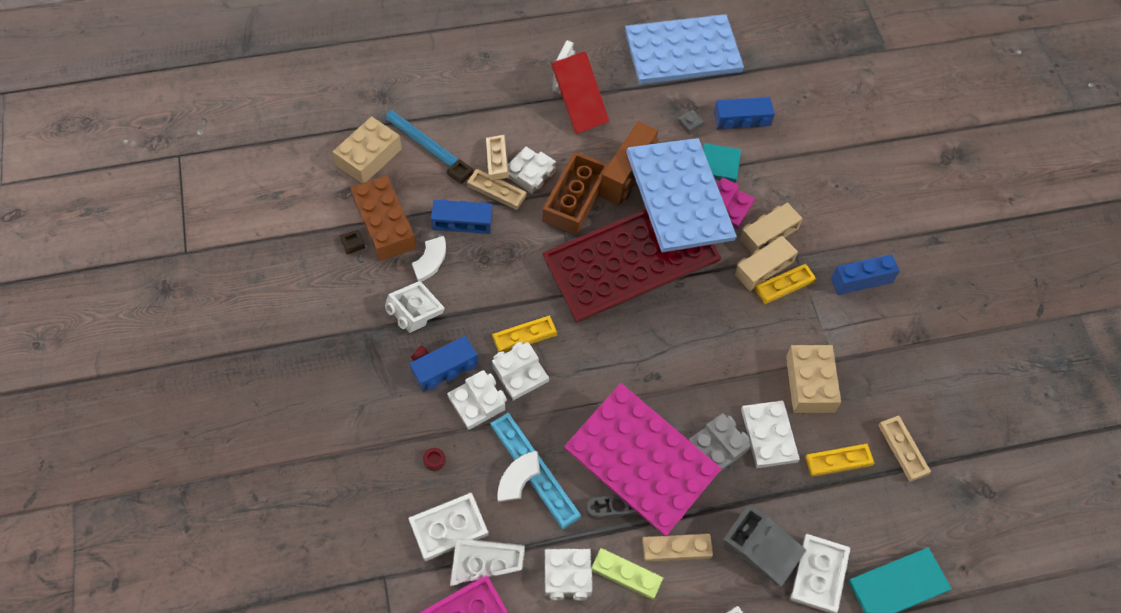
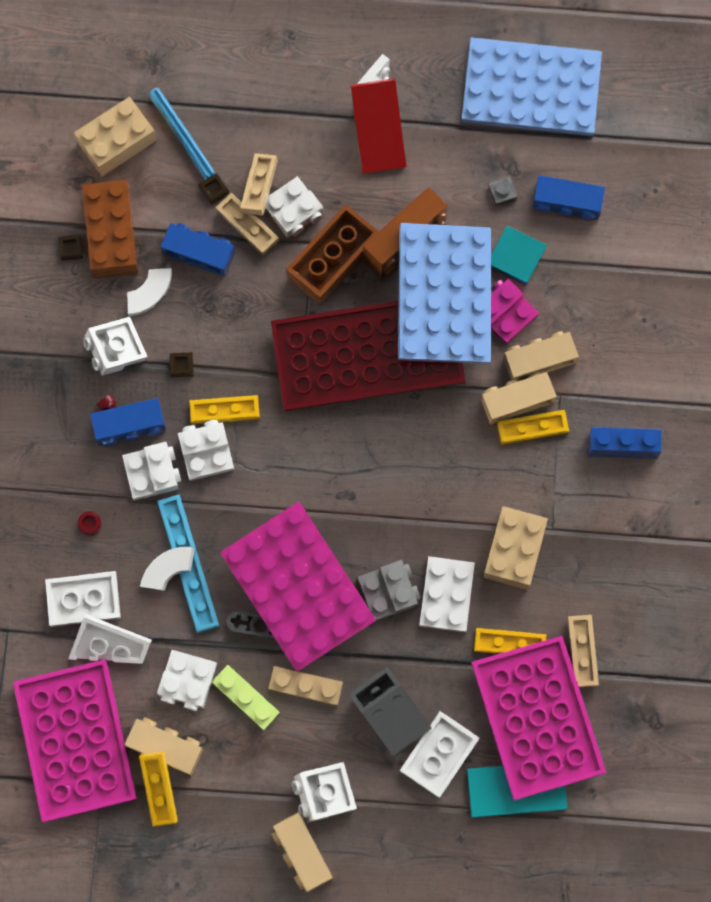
camera: 20 degrees right, 15 degrees up
(476, 308) = (181, 364): none -> dark brown tile
(894, 516) = (538, 718): none -> dark pink plate

